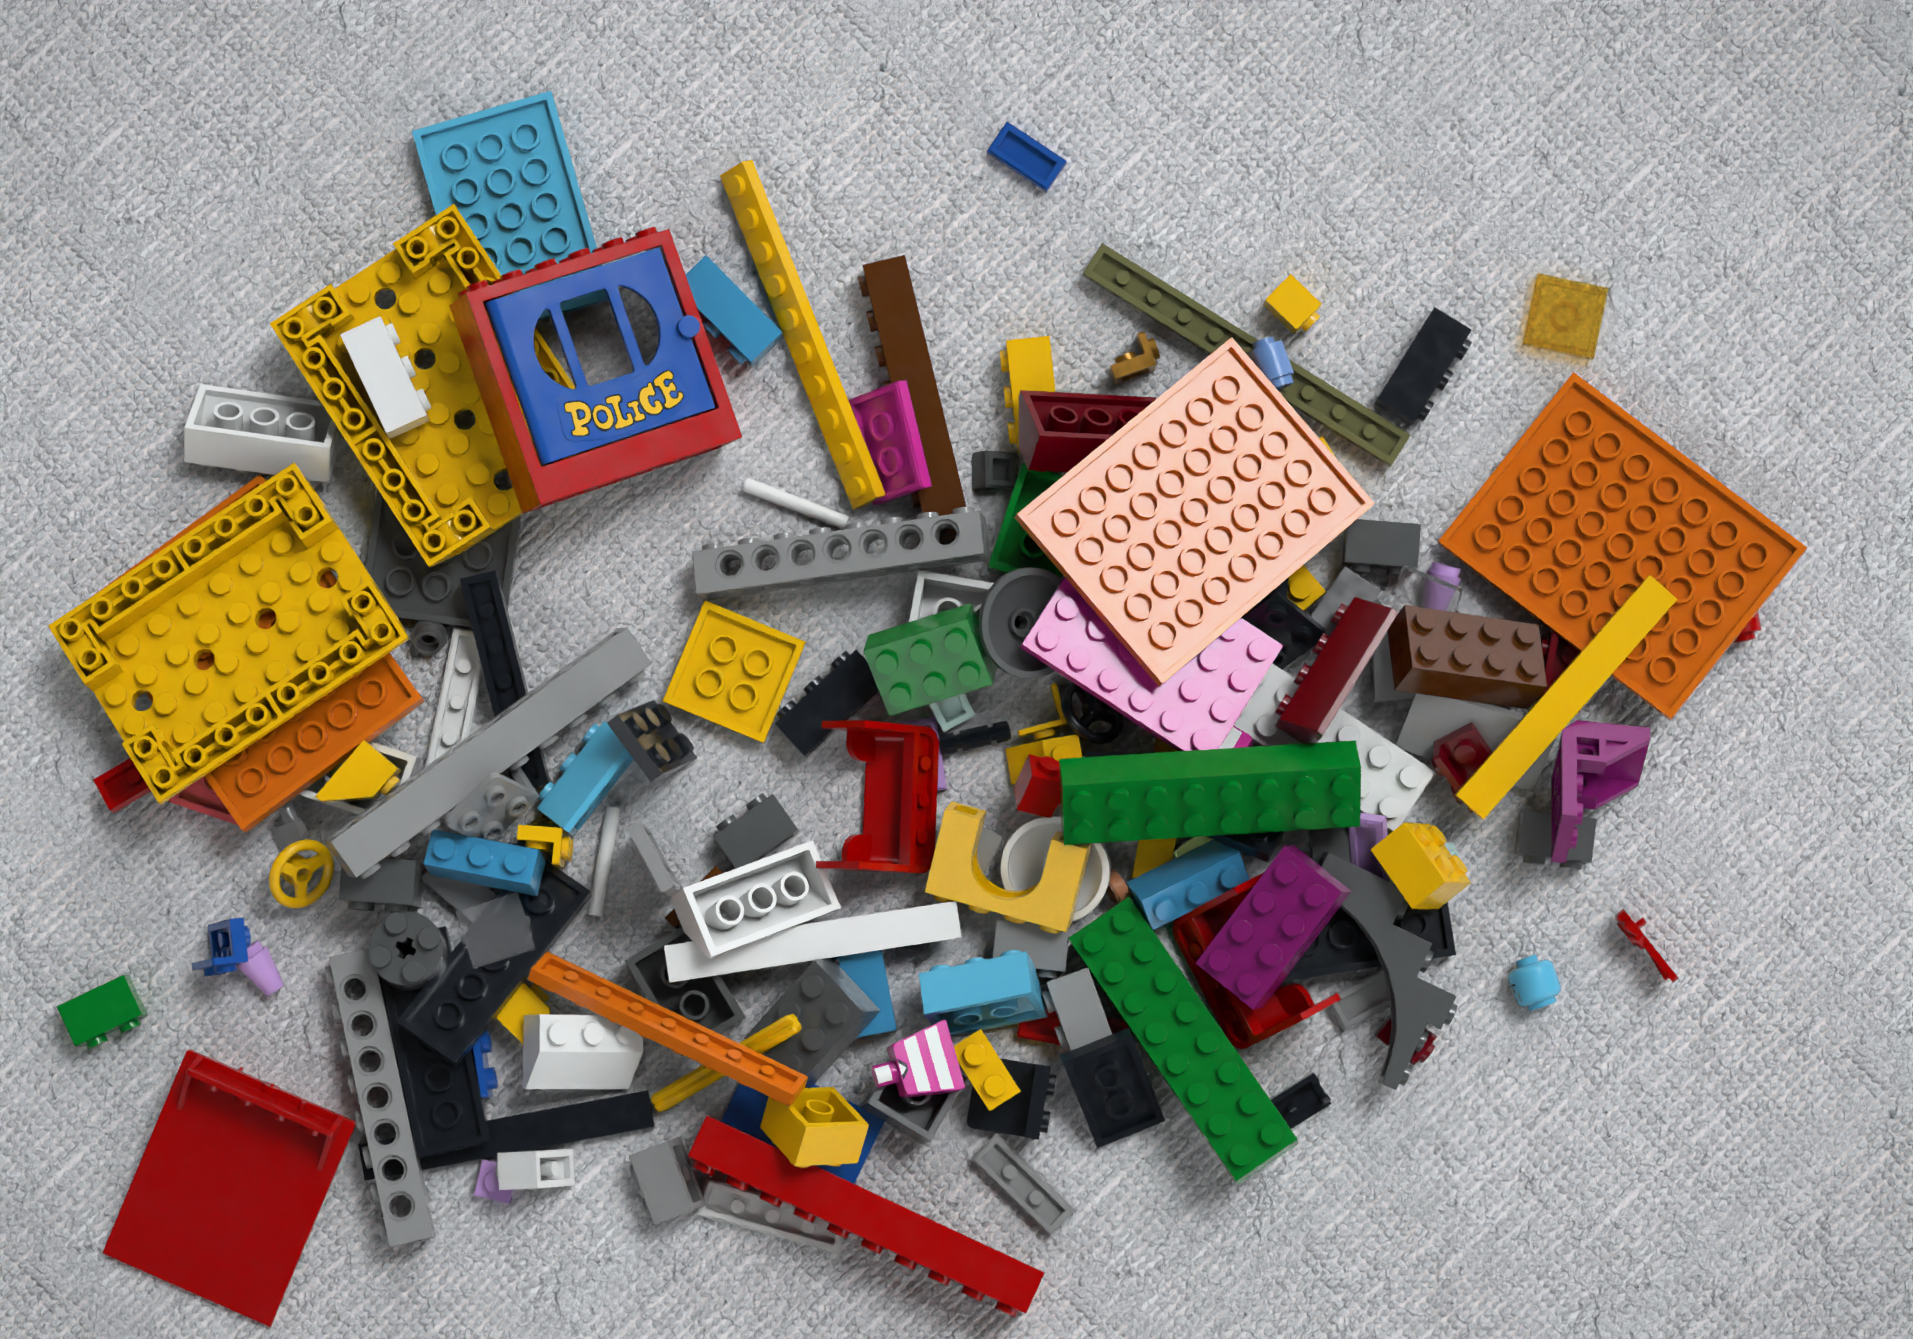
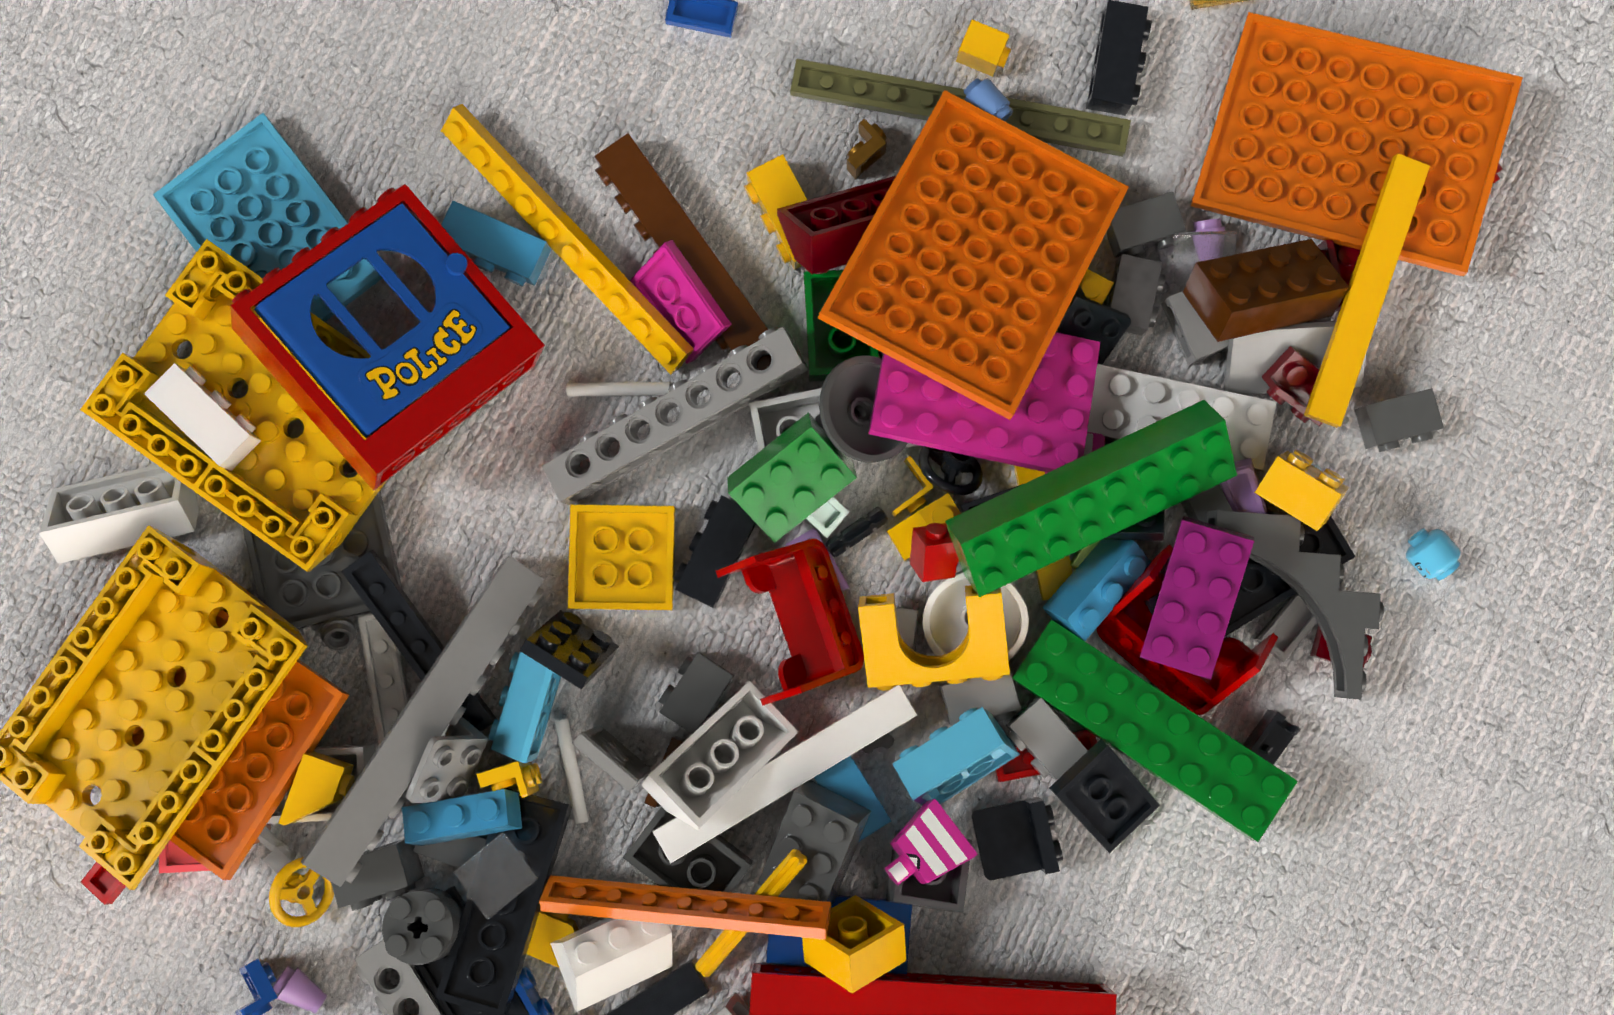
camera: 20 degrees left, 0 degrees up
(985, 1070) = (985, 826): yellow brick -> none
(994, 470) = (780, 292): dark grey slope -> none
(1023, 1184) = (1056, 911): light grey tile -> none
(1117, 888) = (1037, 616): nougat tile -> none
(1334, 670) = (1157, 344): dark red slope -> none
(1602, 759) = (1407, 349): magenta bracket -> none
(1636, 937) = (1507, 478): red piece -> none

